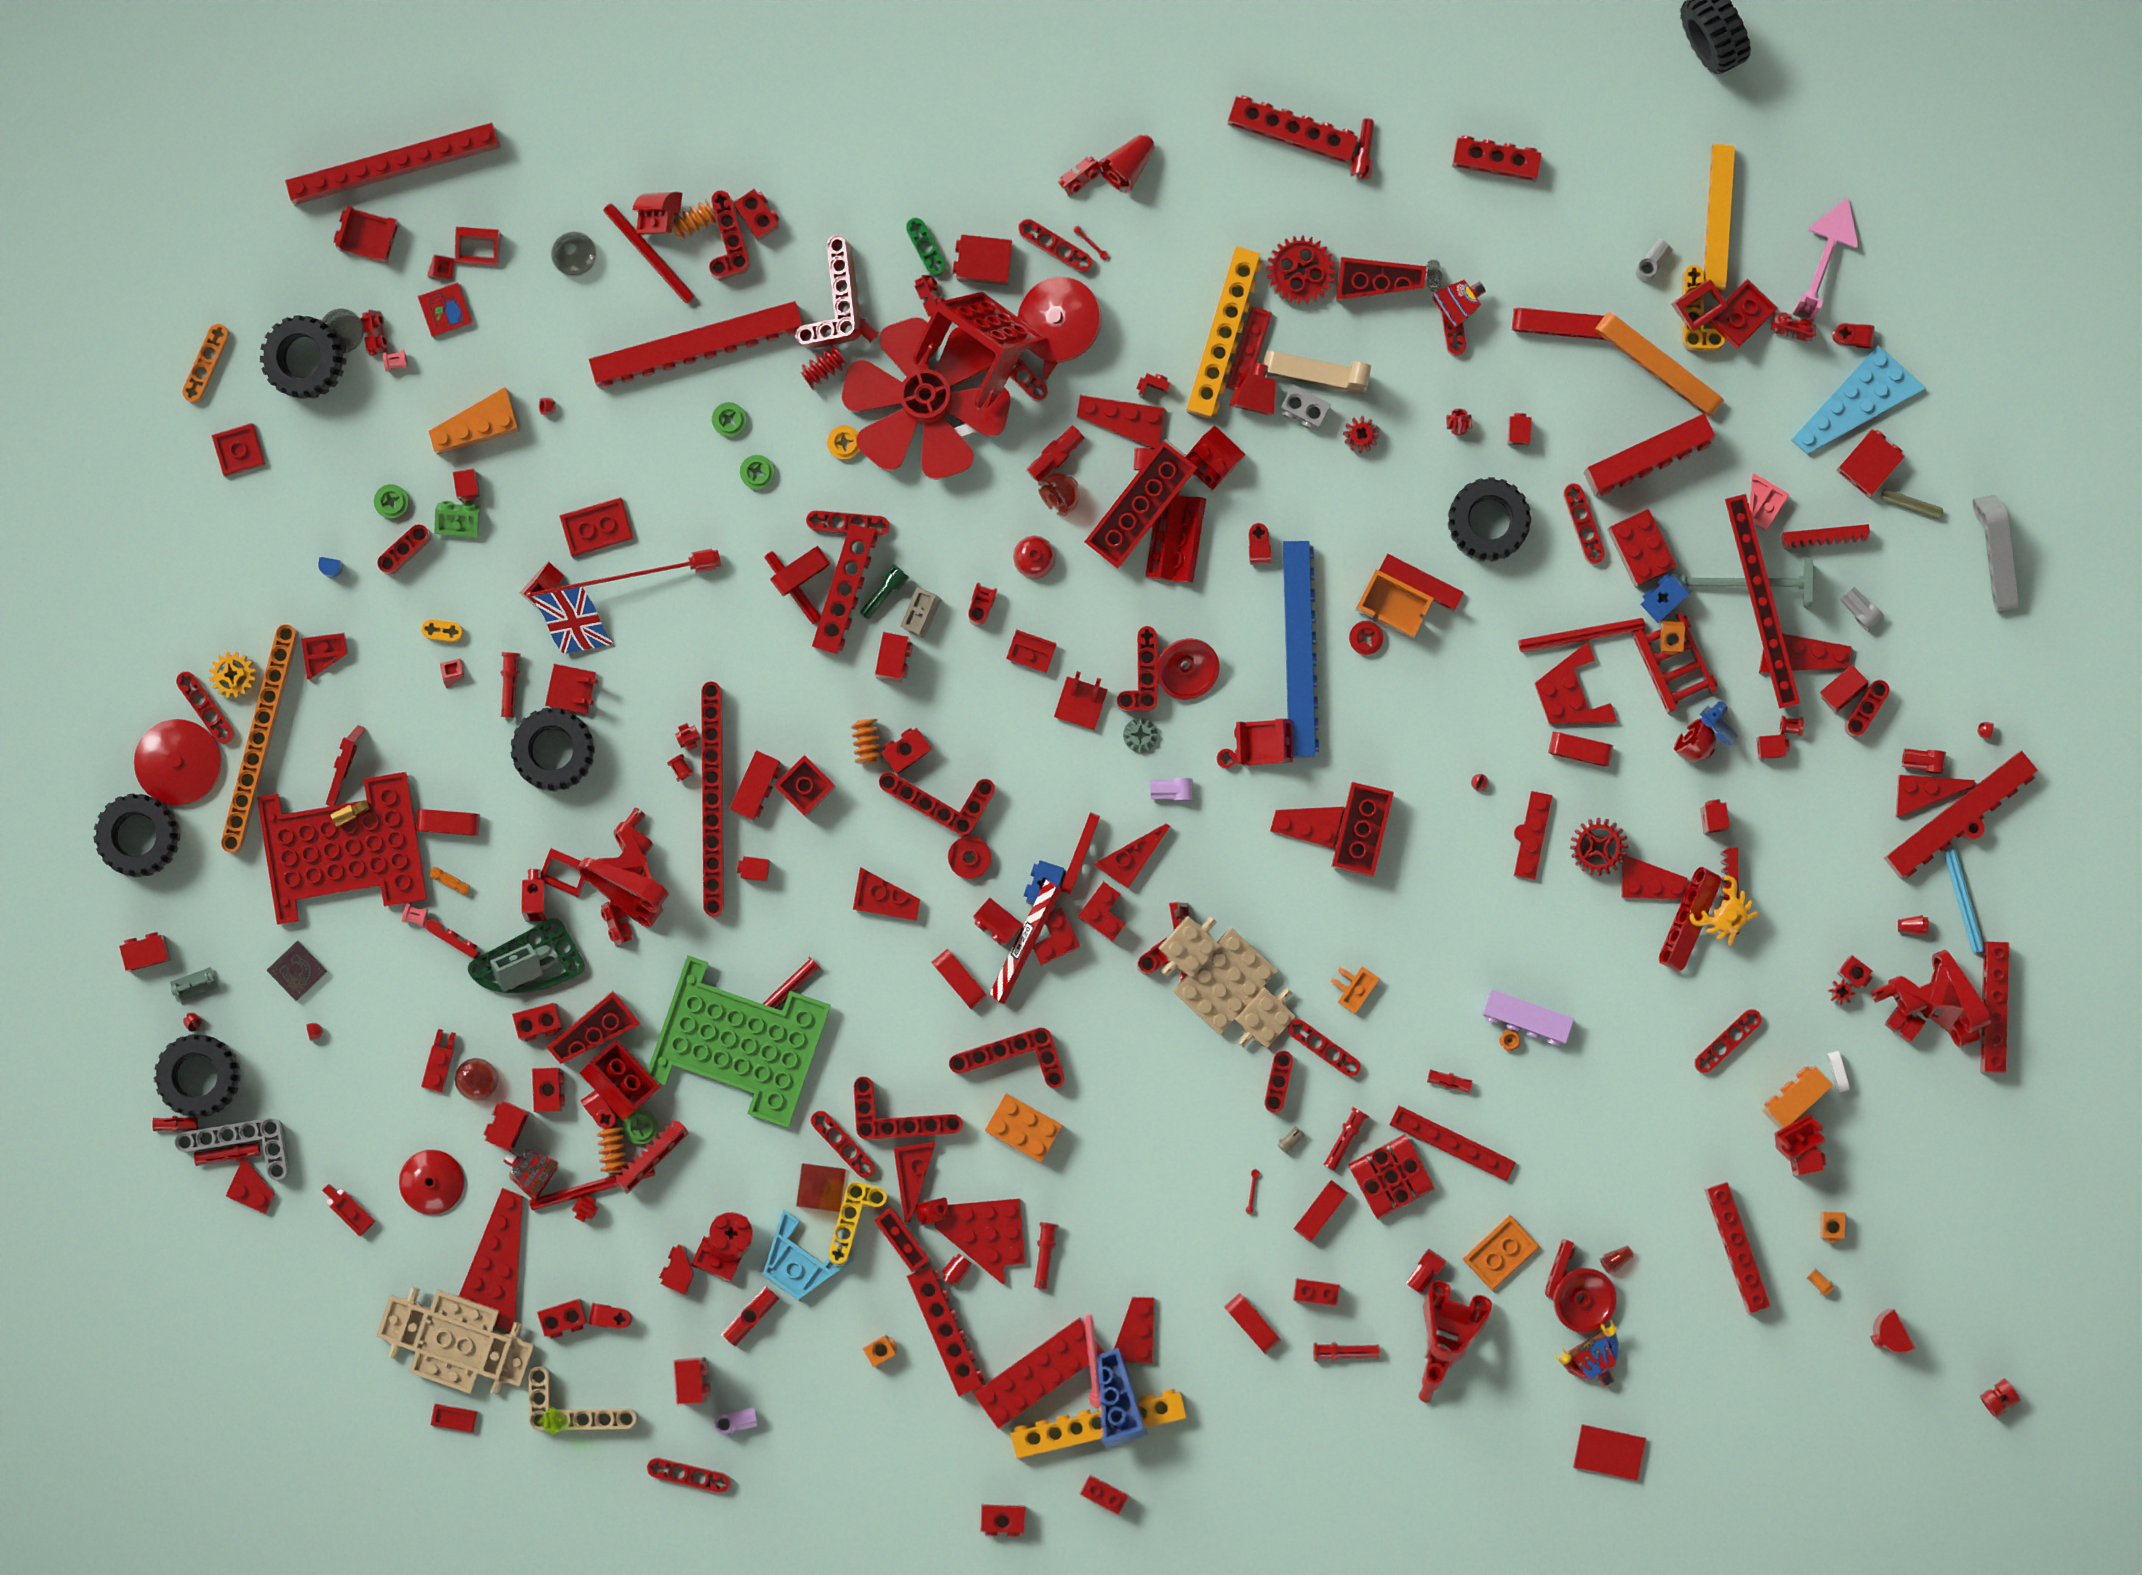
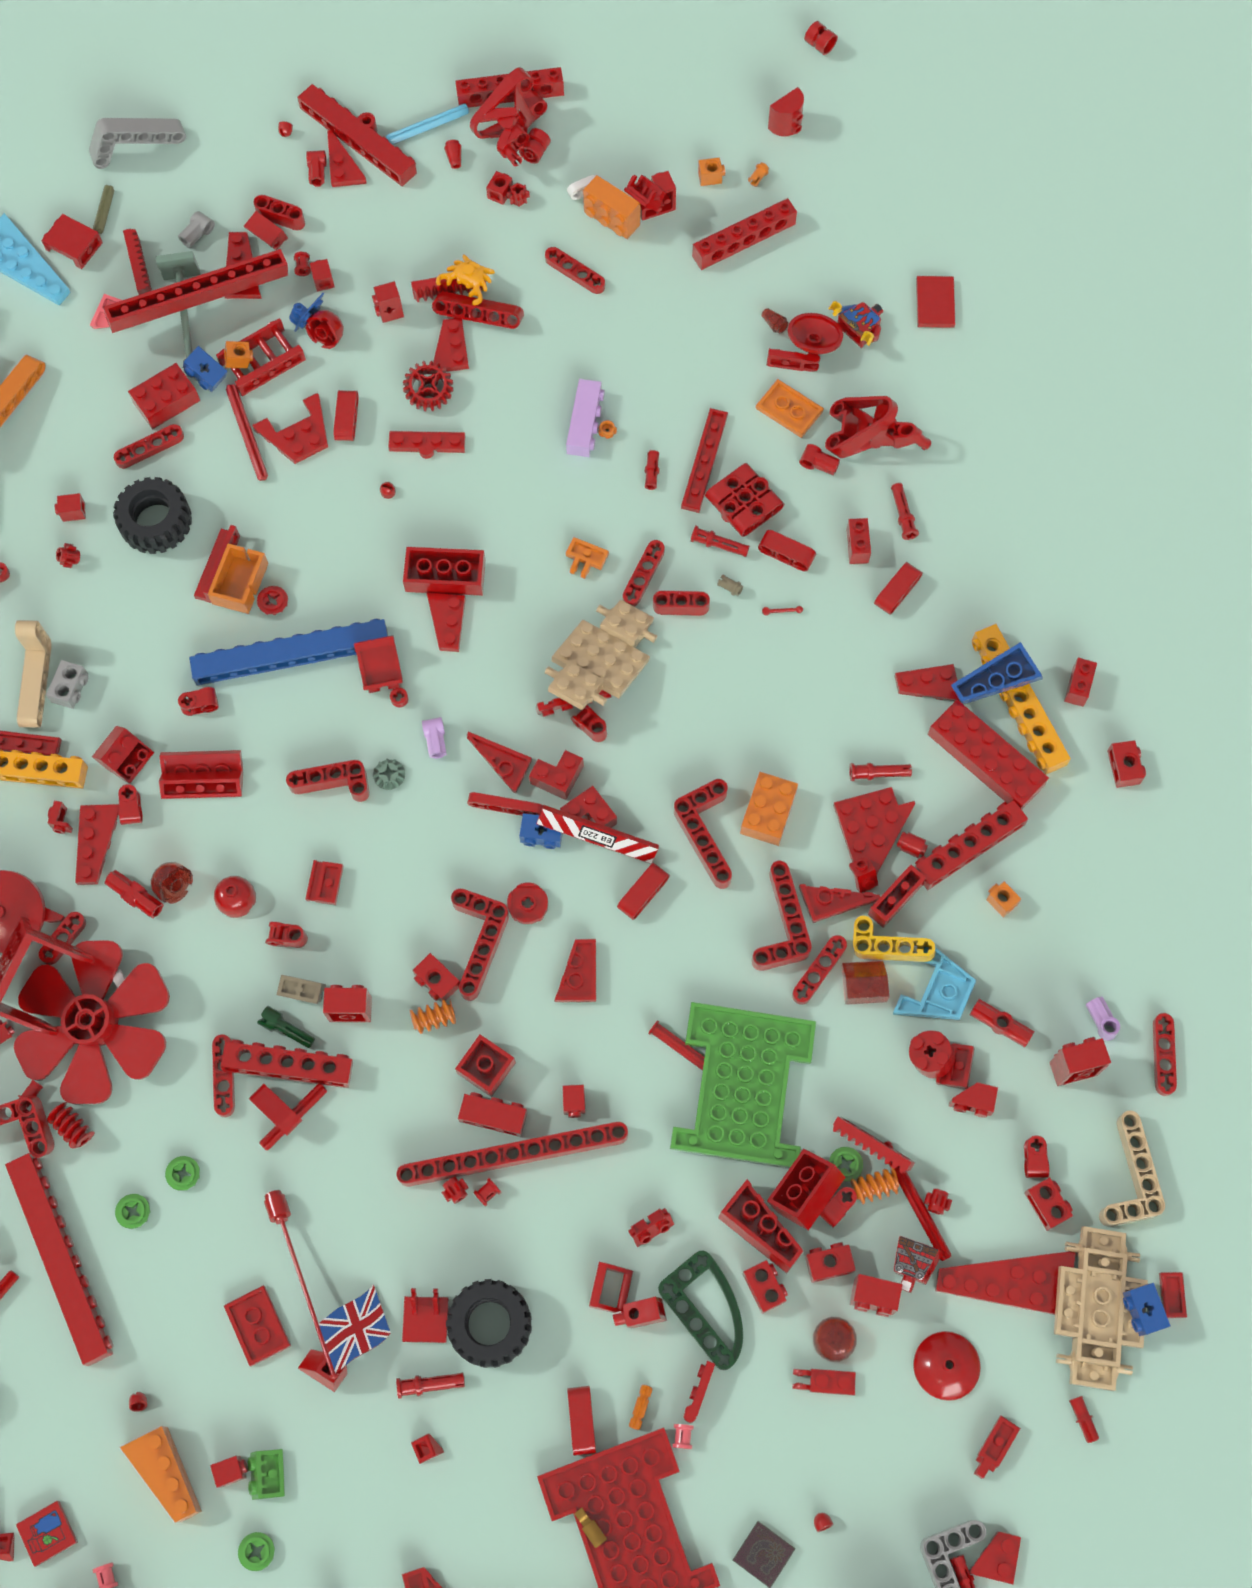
camera: 100 degrees left, 15 degrees down
(344, 763) = (539, 1547): red wing -> none
(356, 1300) = (1084, 1419): none -> red axle
(414, 547) = (295, 1520): red beam -> none
(429, 1386) = (1155, 1316): none -> blue brick
(441, 636) = (379, 1469): light orange beam -> none
(521, 966) = (713, 1313): sand green hinge -> none
(552, 1421) = (1152, 1189): clear neon green slope -> none
(627, 872) = (618, 1192): red connector -> none
(836, 436) = (135, 1090): light orange gear -> none
(997, 921) = (583, 864): red slope -> none
(1081, 702) = (365, 830): red plate -> none
(1094, 1396) = (994, 703): coral piece -> none
(1141, 503) = (170, 802): red brick -> none
(1195, 677) = (321, 739): red dish -> none
(1255, 392) = (56, 726): red torso -> none
(1352, 433) = (88, 633): red gear -> none
(1649, 454) = (82, 399): red brick -> none

